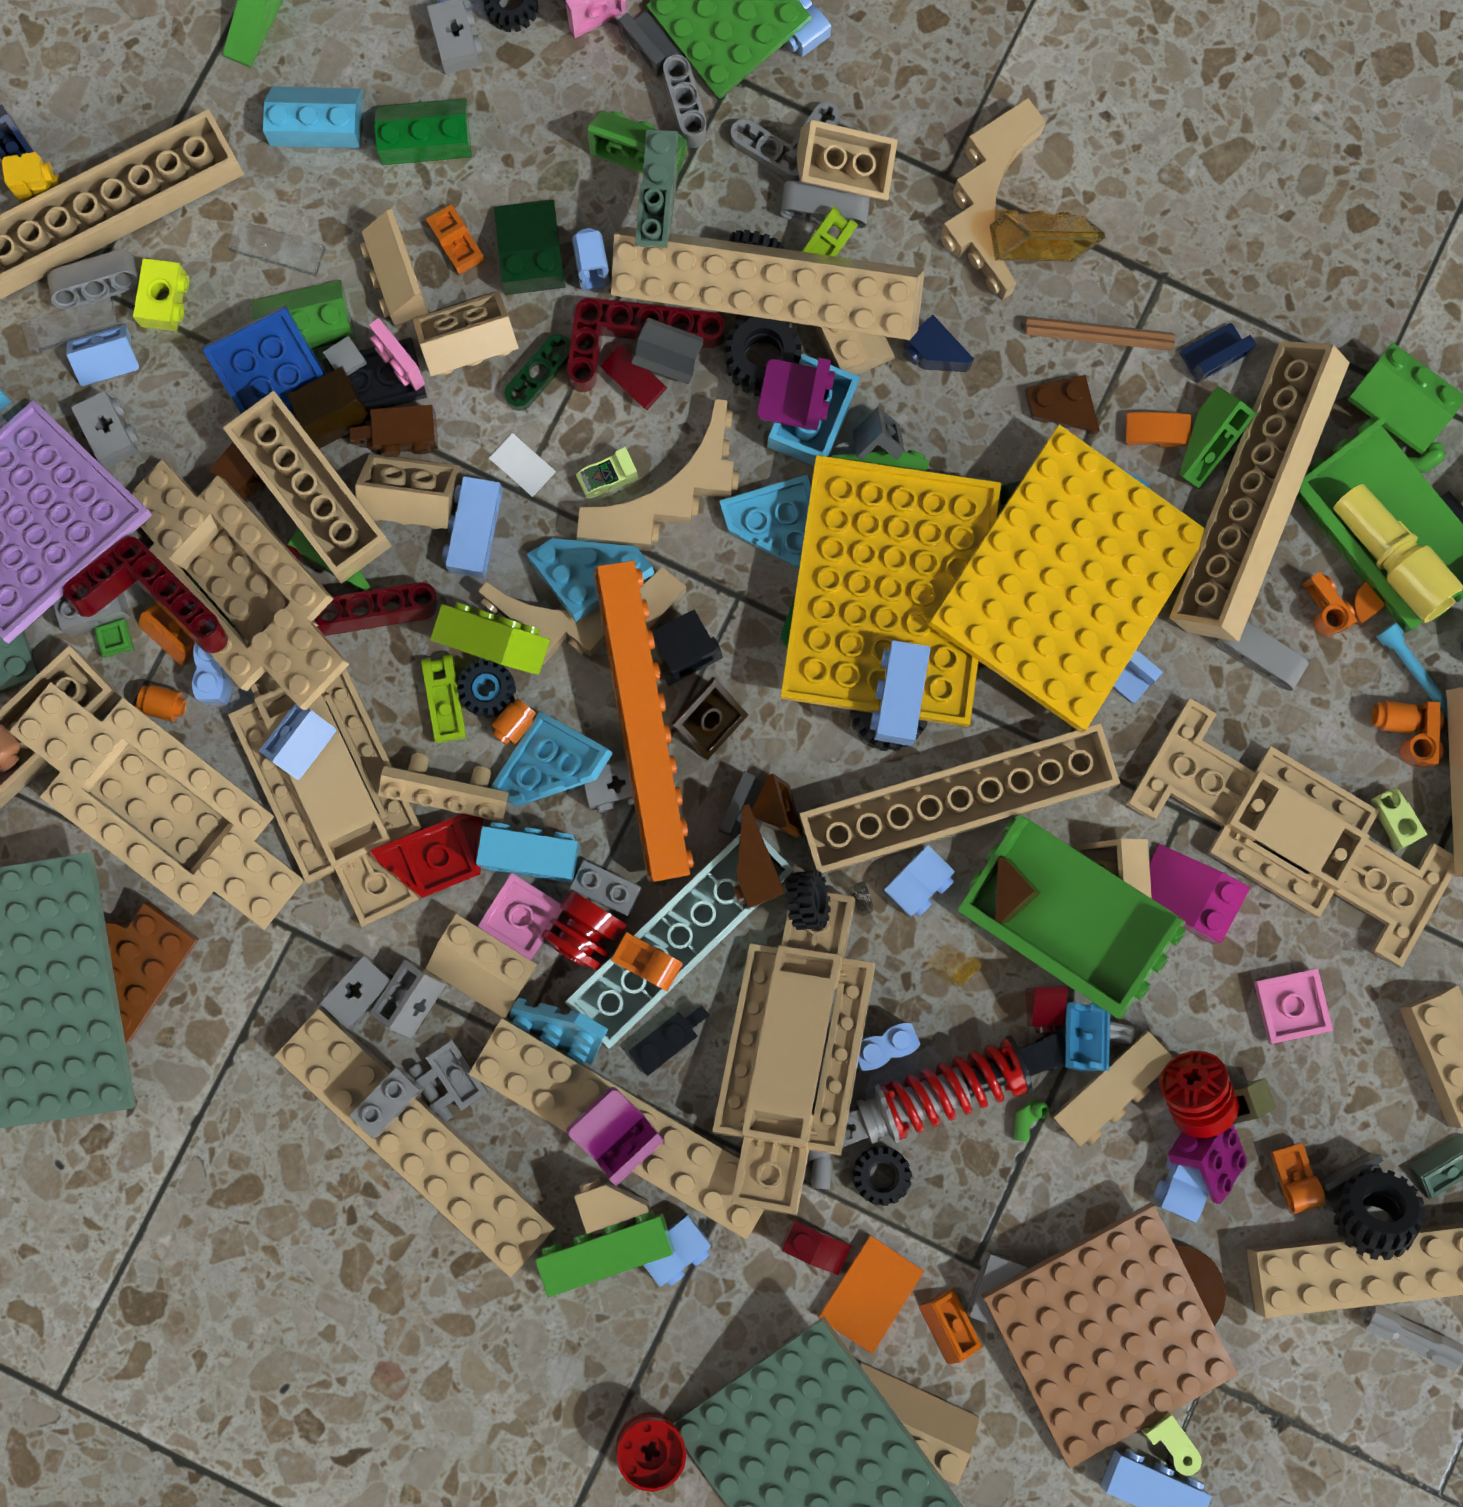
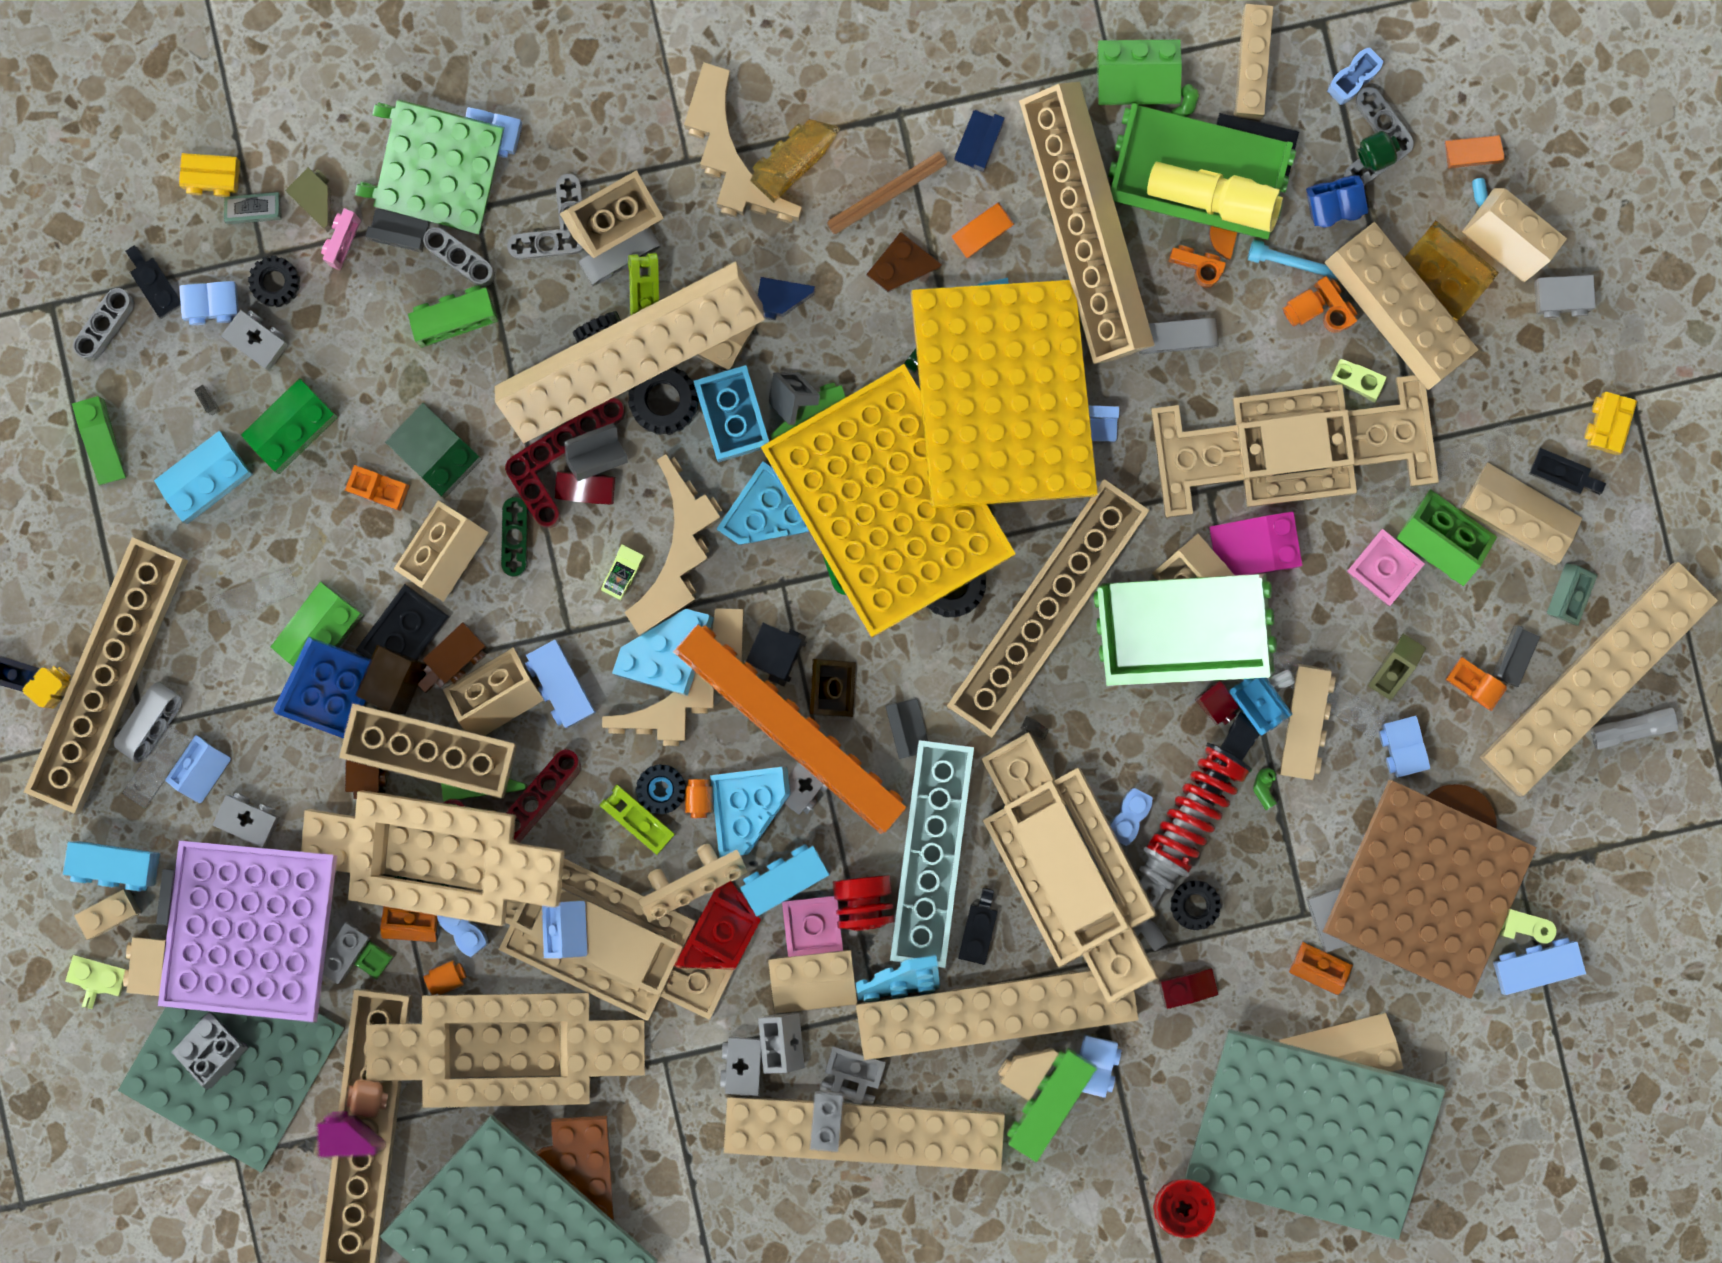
camera: 30 degrees left, 5 degrees up
(133, 562) = (385, 903): dark red beam -> none
(155, 278) = (190, 686): neon yellow brick -> none
(346, 355) = (371, 635): light grey tile -> none
(371, 53) = (207, 400): none -> clear smoke tile
(391, 349) = (400, 607): bright pink plate -> none
(392, 270) = (354, 547): tan slope -> none
(491, 639) = (640, 754): lime brick -> none
(522, 464) = (556, 611): white sticker -> none
(591, 259) = (488, 428): light blue brick -> none
(606, 888) = (855, 861): light grey brick -> none
(615, 1134) = (996, 1021): magenta bracket -> none
(647, 961) = (924, 889): orange plate -> none
(657, 189) = (501, 348): sand green slope -> none
(755, 870) = (949, 770): reddish brown slope -> none
(777, 808) = (927, 712): reddish brown slope -> none
(795, 393) = (712, 415): magenta bracket -> none
(807, 900) = (999, 761): black tyre -> none
(871, 1294) = (1250, 989): orange tile -> none
(900, 693) = (951, 571): light blue brick -> none
(919, 881) = (1064, 685): light blue brick -> none
(965, 972) = (1144, 722): clear yellow tile -> none
(1013, 891) = (1133, 642): reddish brown slope -> none
(1199, 1094) = (1364, 682): red wheel -> none
(1213, 434) = (1023, 200): bright green slope -> none
(1216, 1157) = (1404, 710): magenta bracket -> none
(1370, 1024) = (1447, 538): none -> bright green slope
(1388, 1194) = (1551, 685): black tyre -> none

